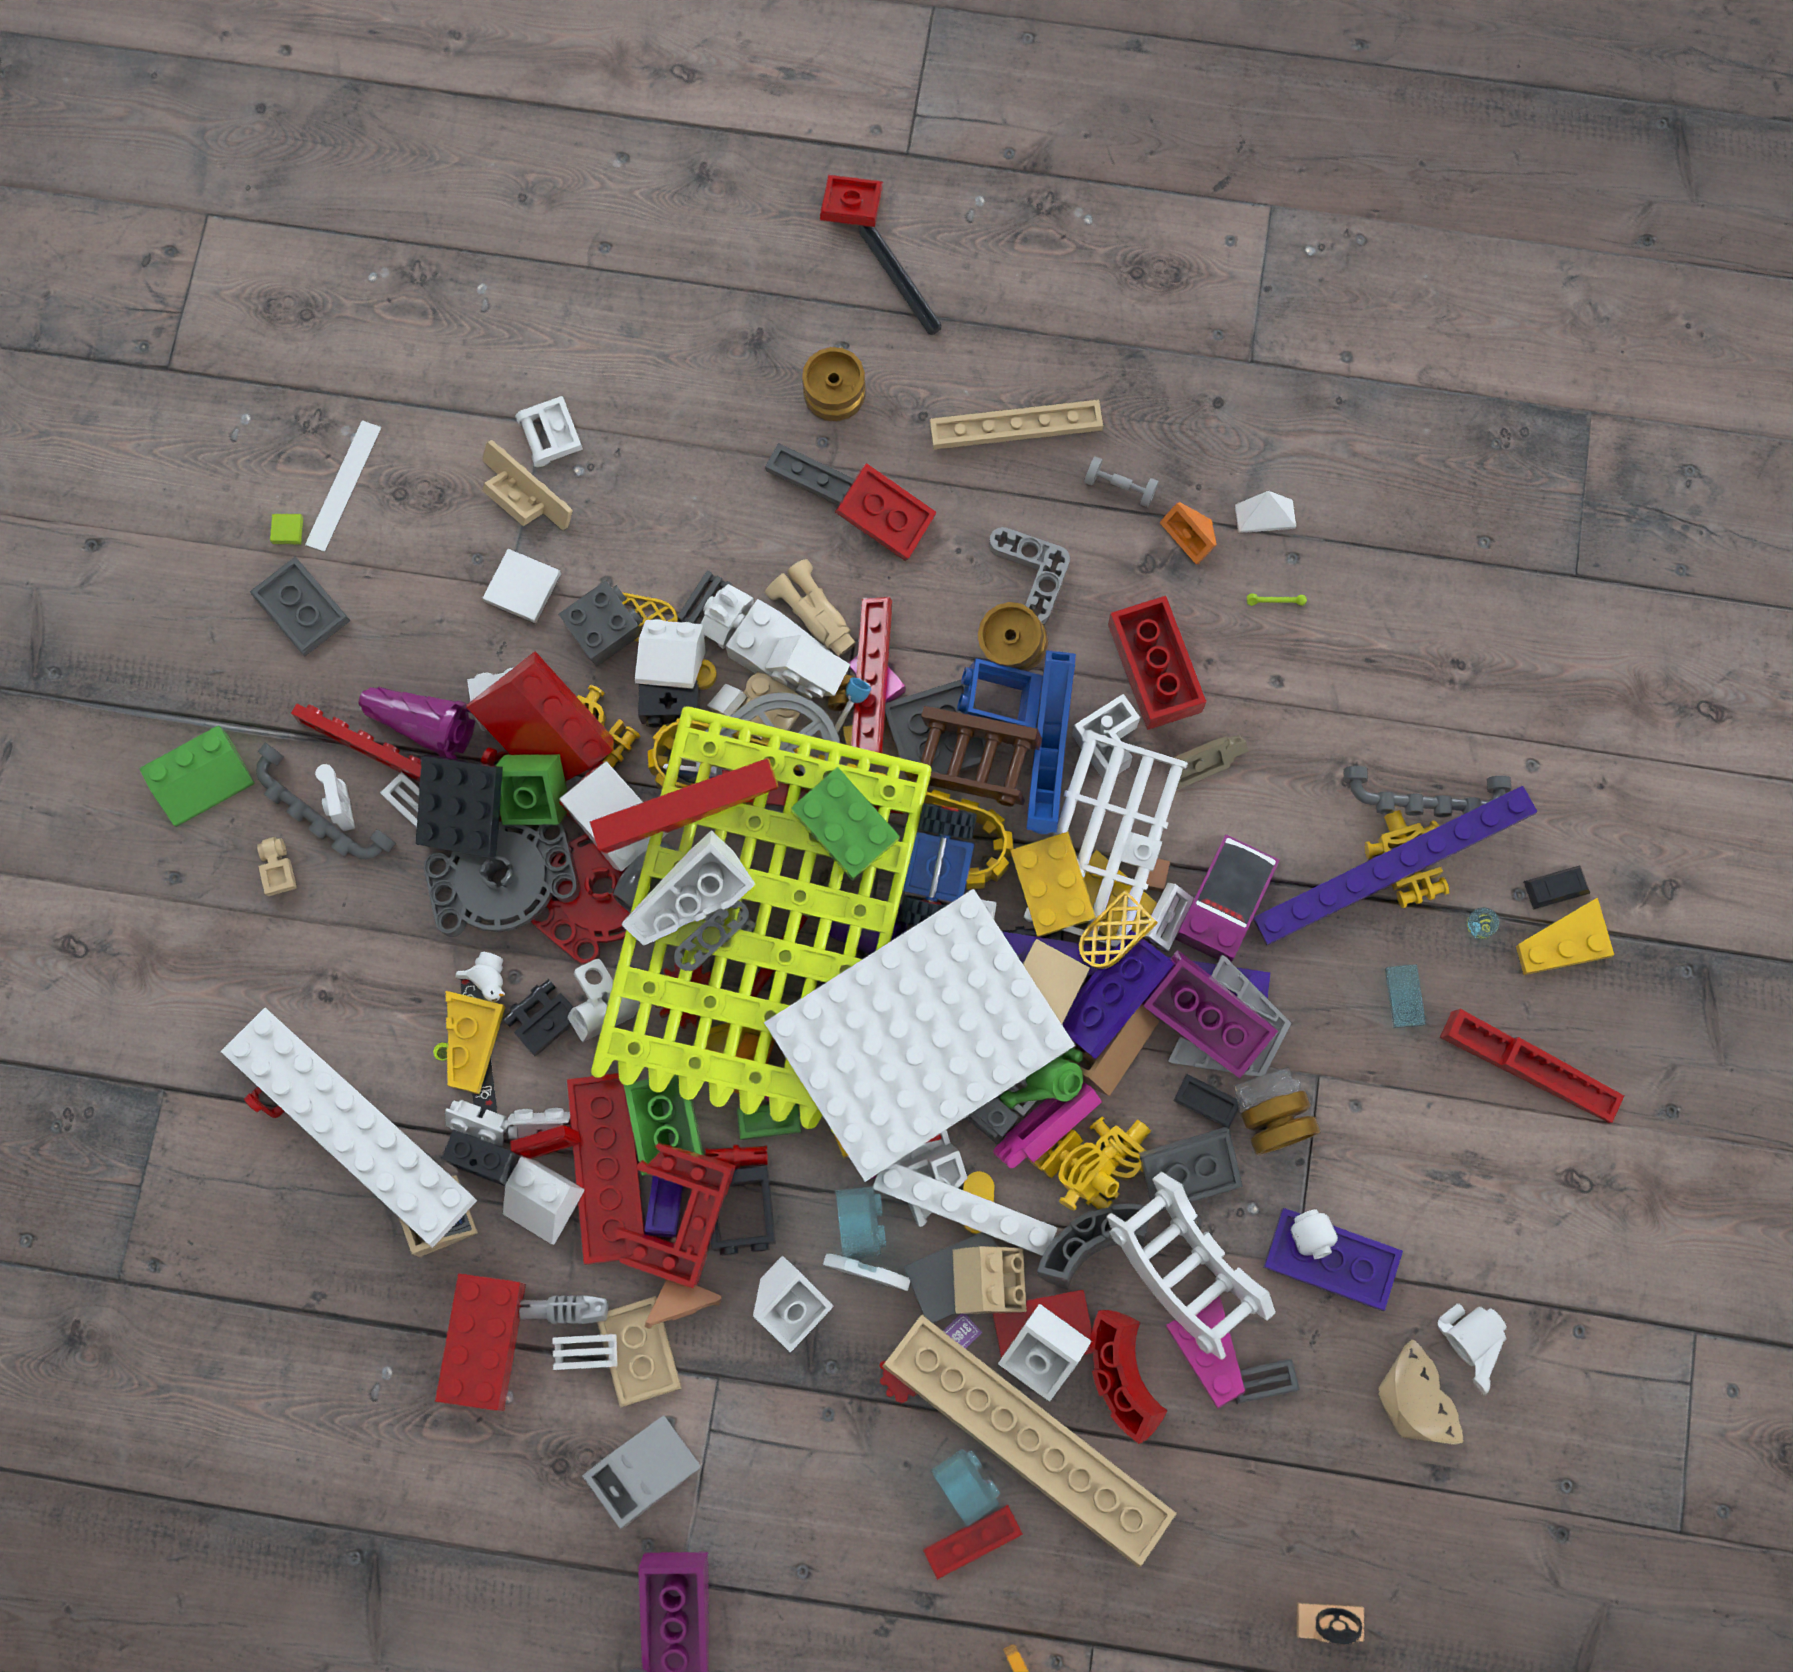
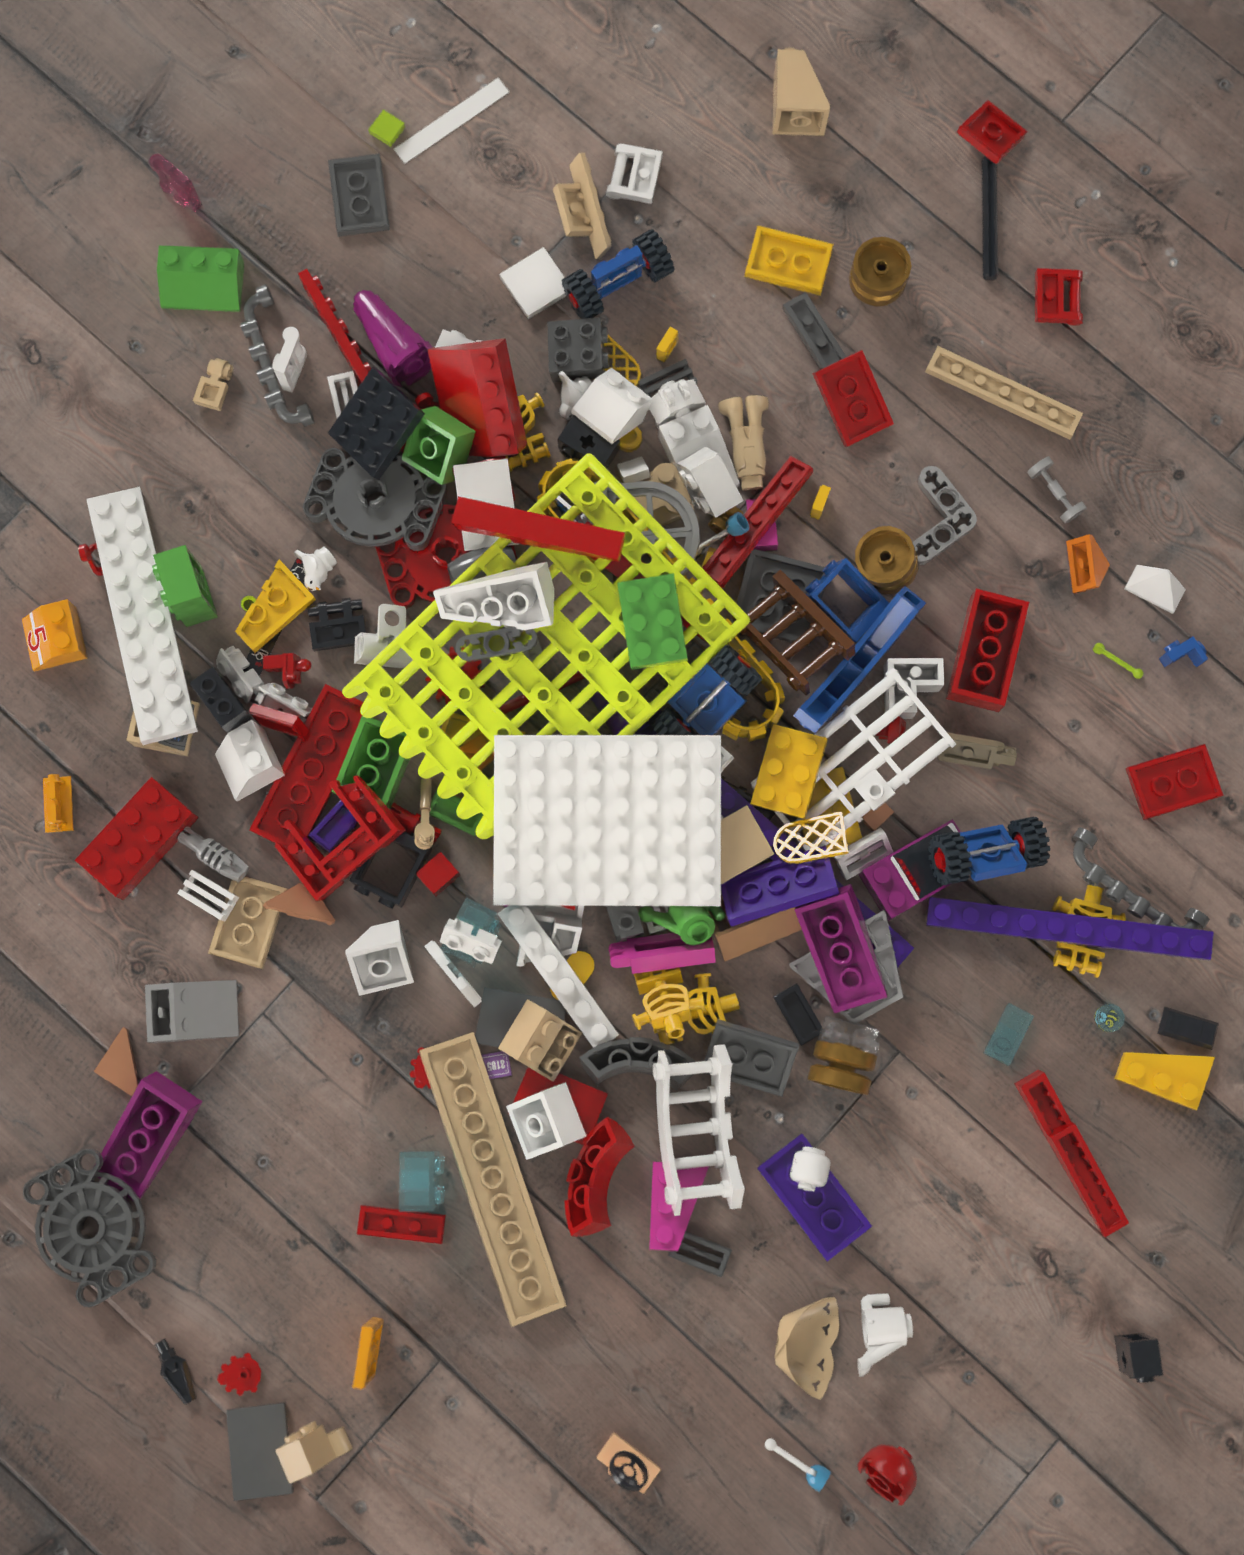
camera: 30 degrees right, 5 degrees up
(116, 699) = (175, 182): none -> clear pink plate
(272, 1202) = (54, 635): none -> light orange slope
(373, 1073) = (184, 586): none -> bright green brick
(380, 1360) = (58, 803): none -> light orange hinge
(519, 1083) = (289, 665): none -> red piece
(603, 1571) = (119, 1064): none -> nougat tile
(611, 496) = (607, 277): none -> plate
(624, 666) = (571, 393): none -> white animal
(655, 272) = (797, 96): none -> tan slope
(682, 567) = (667, 344): none -> yellow tile
(743, 424) = (788, 260): none -> yellow tile
(753, 1156) = (424, 831): none -> tan piece
(791, 1188) = (438, 874): none -> red panel
(882, 1226) = (458, 937): none -> white hinge
(917, 623) = (820, 501): none -> yellow tile
(1001, 315) = (1050, 296): none -> red plate
(1121, 789) = (893, 730): none -> red tile
(1279, 841) = (989, 851): none -> plate
(1333, 547) = (1190, 647): none -> blue bracket
(1397, 676) = (1174, 782): none -> red tile
(1506, 1515) = (815, 1475): none -> hinge
(1570, 1466) = (890, 1472): none -> red cylinder
(1715, 1209) = (1138, 1356): none -> black brick

